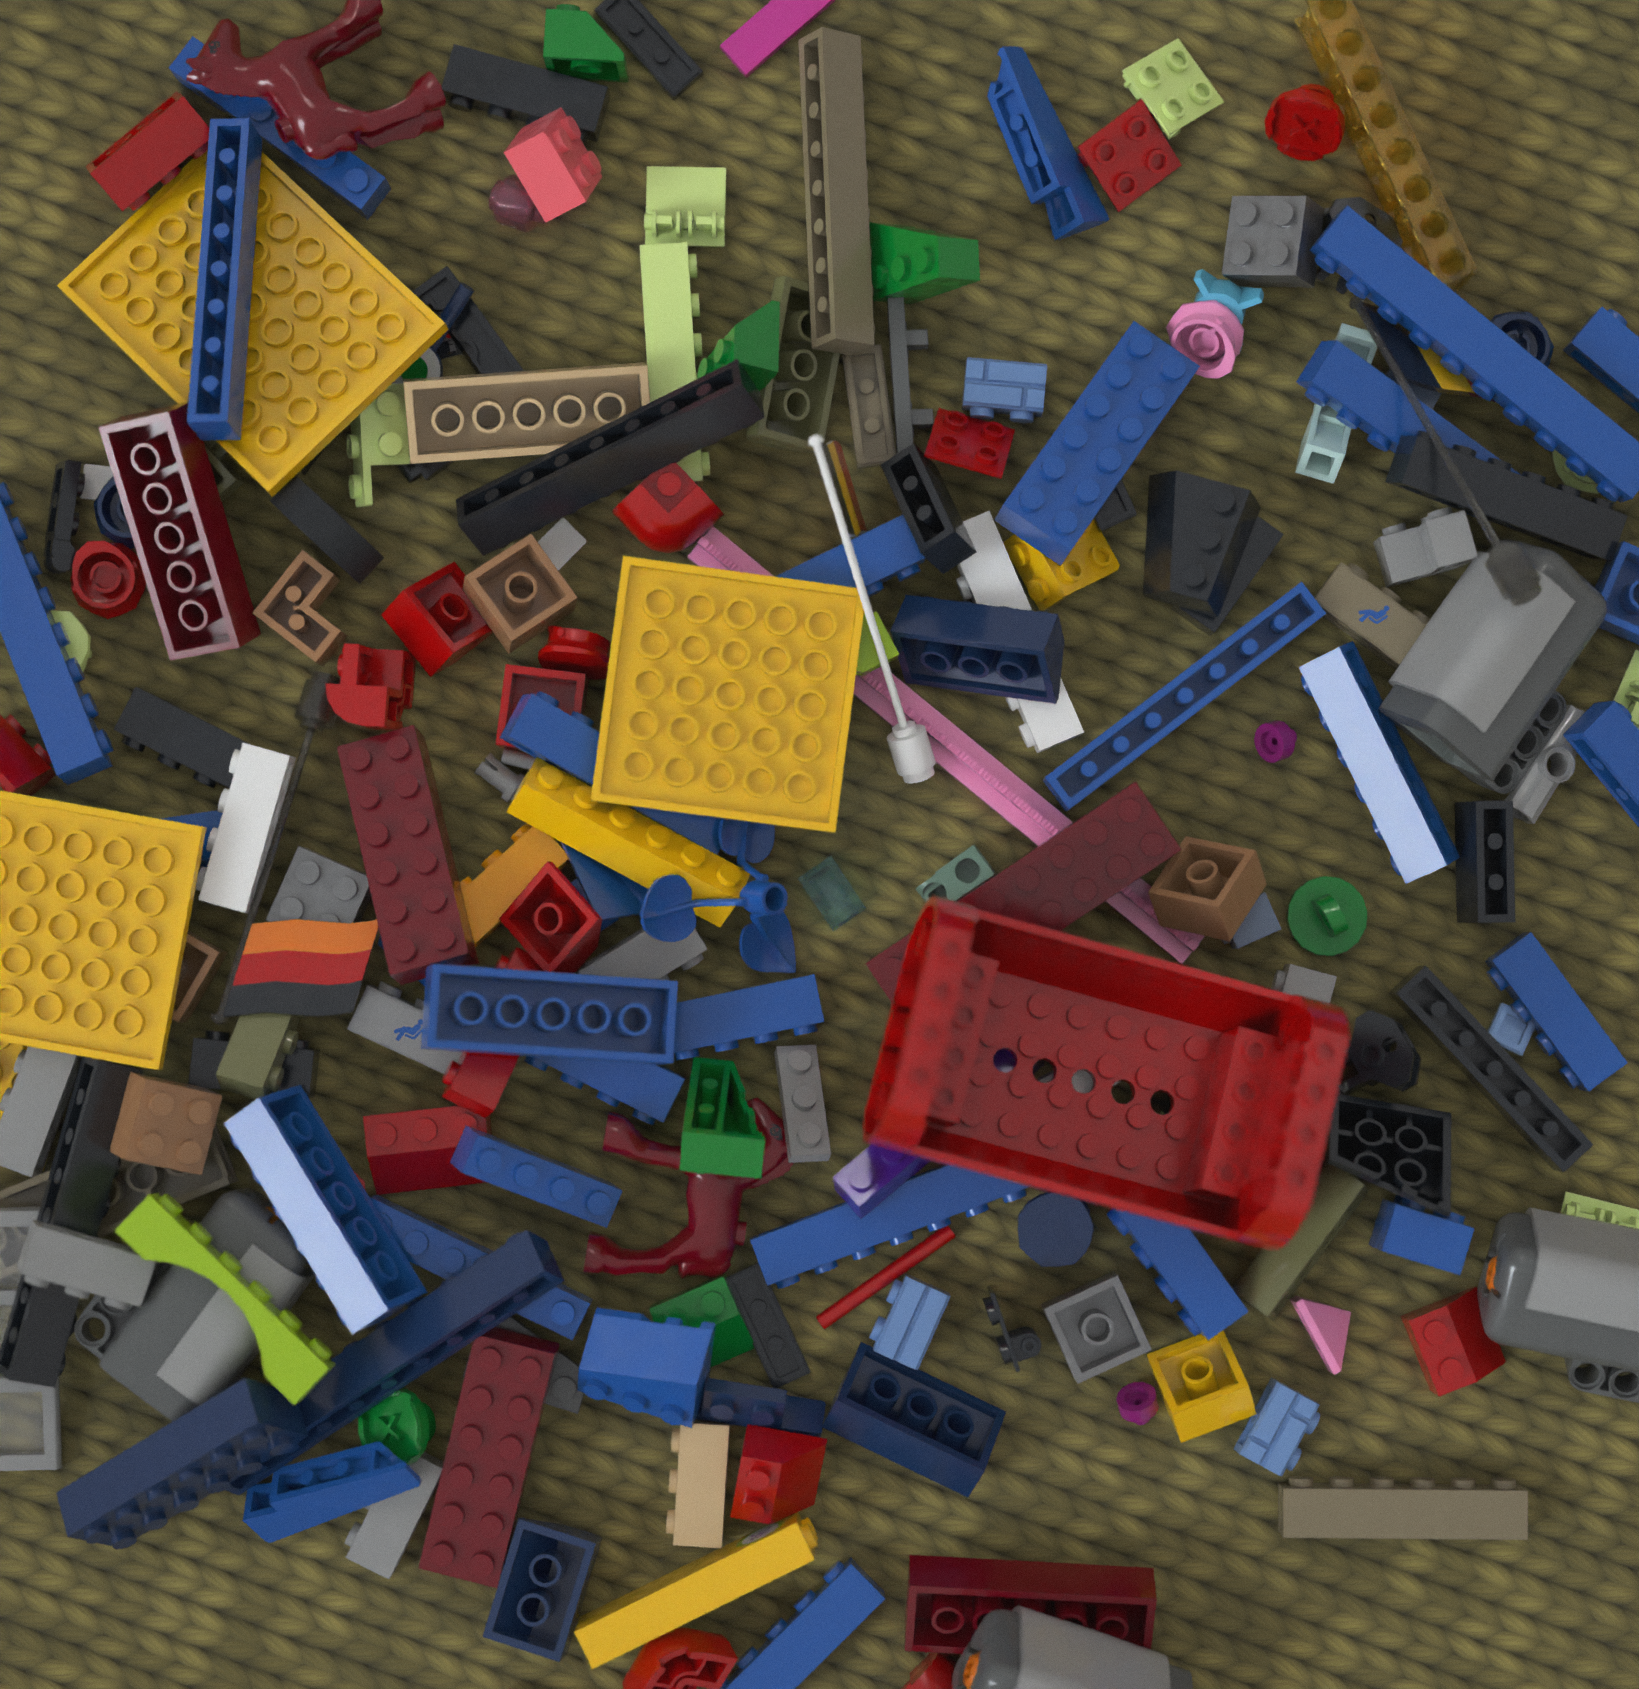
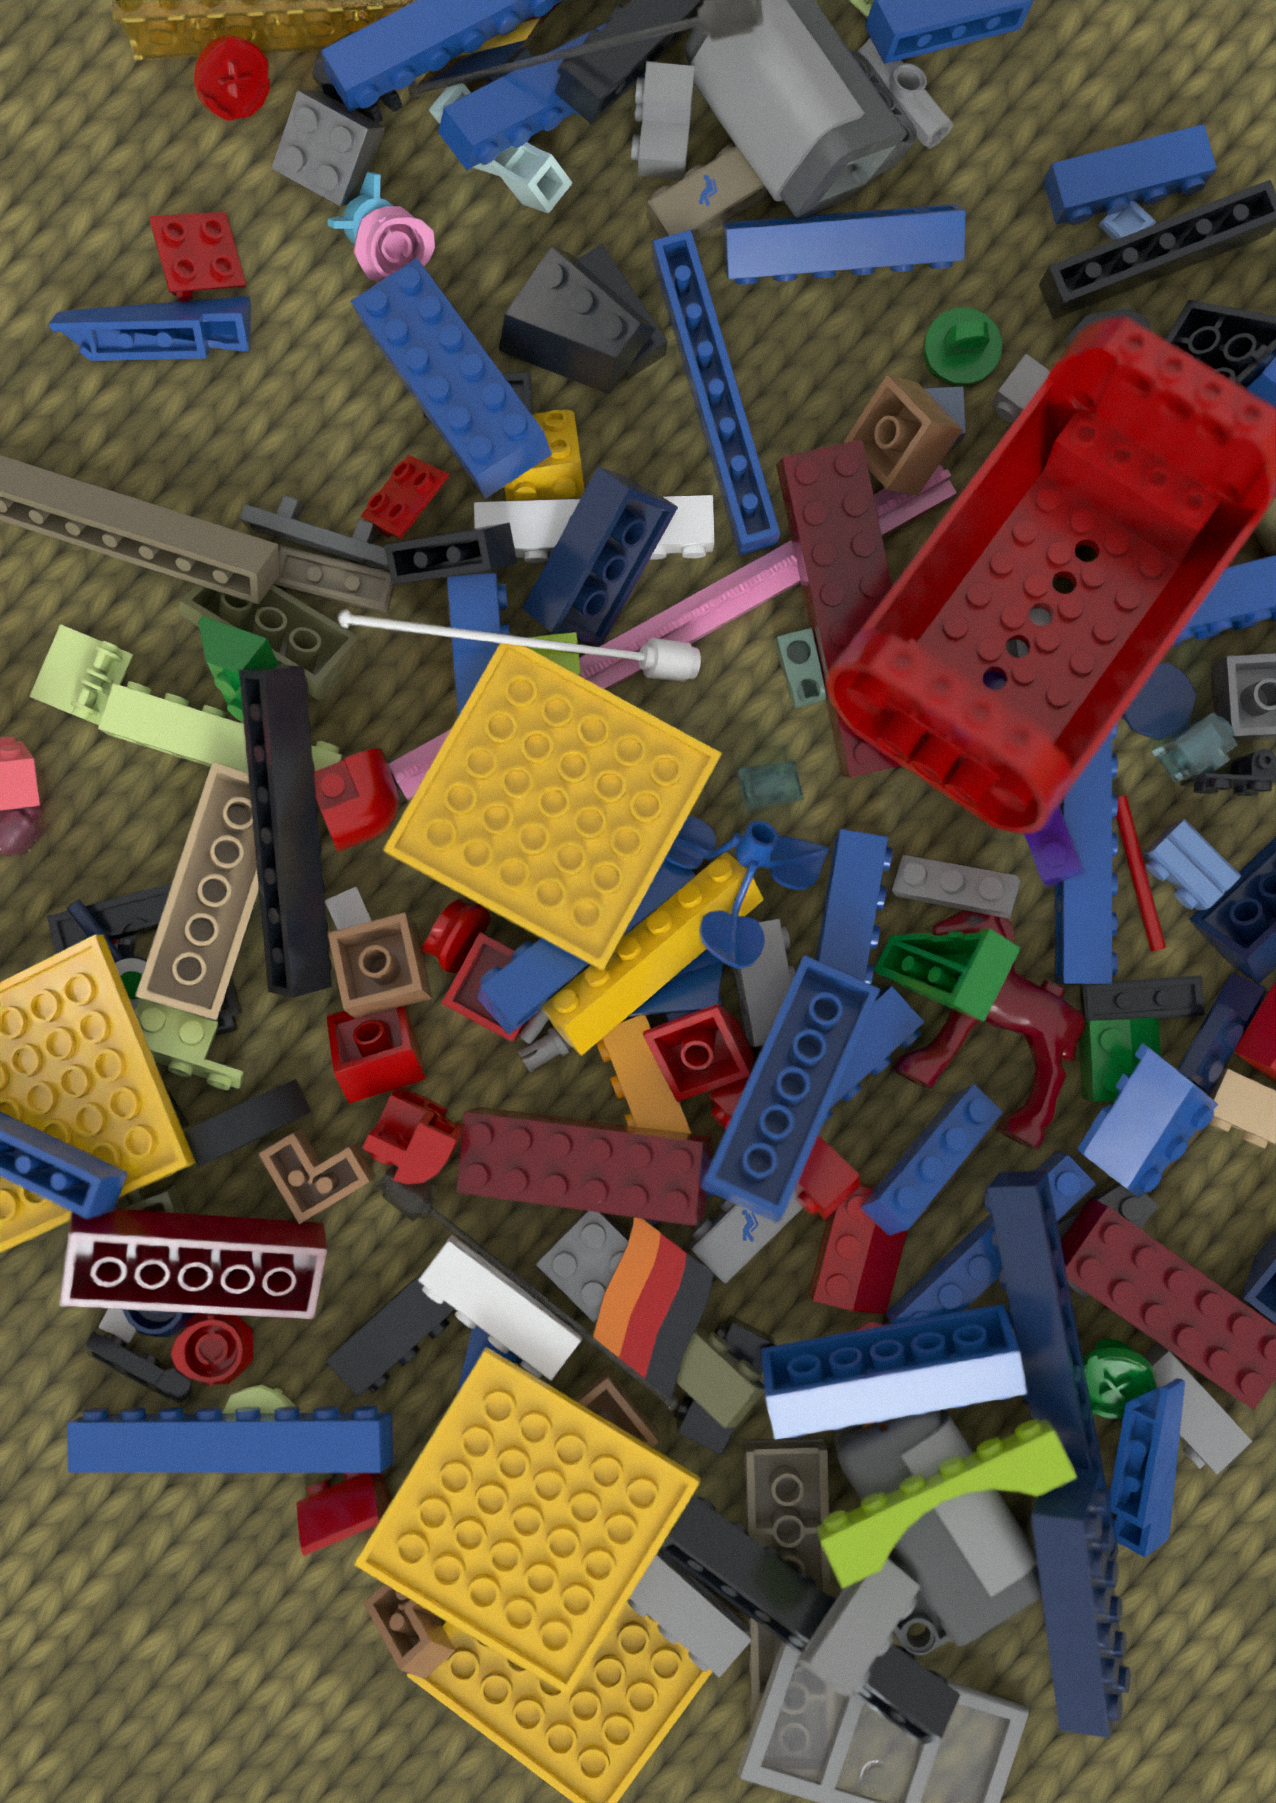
camera: 75 degrees left, 0 degrees up
(165, 1123) = (752, 1493): medium nougat brick -> none
(919, 262) = (219, 470): green wedge -> none
(1004, 389) = (366, 448): medium blue brick -> none
(1022, 1282) = (1197, 748): none -> clear light blue brick
(1171, 87) = (150, 190): yellowish green hinge -> none
(1275, 741) = (786, 329): magenta tile -> none
(1486, 862) = (972, 178): black brick -> none

